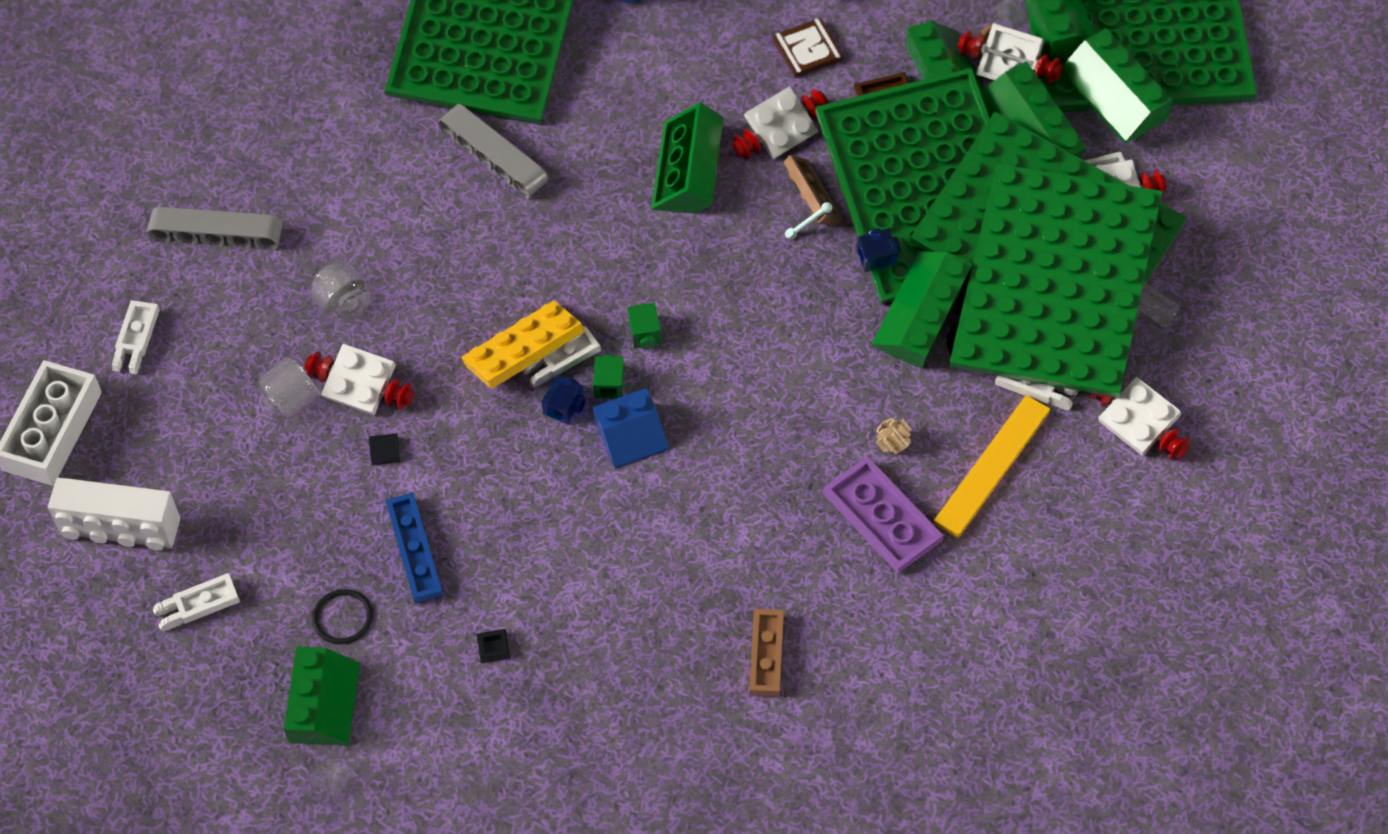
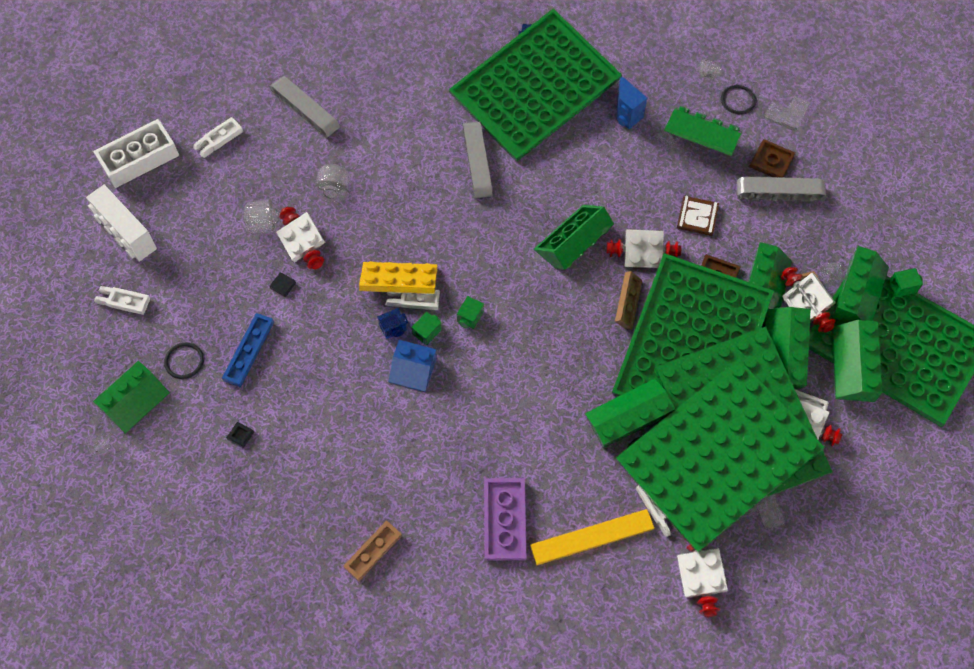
camera: 35 degrees right, 5 degrees up
(792, 233) = (597, 316): light aqua hinge -> none
(877, 249) = (630, 360): clear blue brick -> none
(893, 435) = (549, 477): tan gear -> none

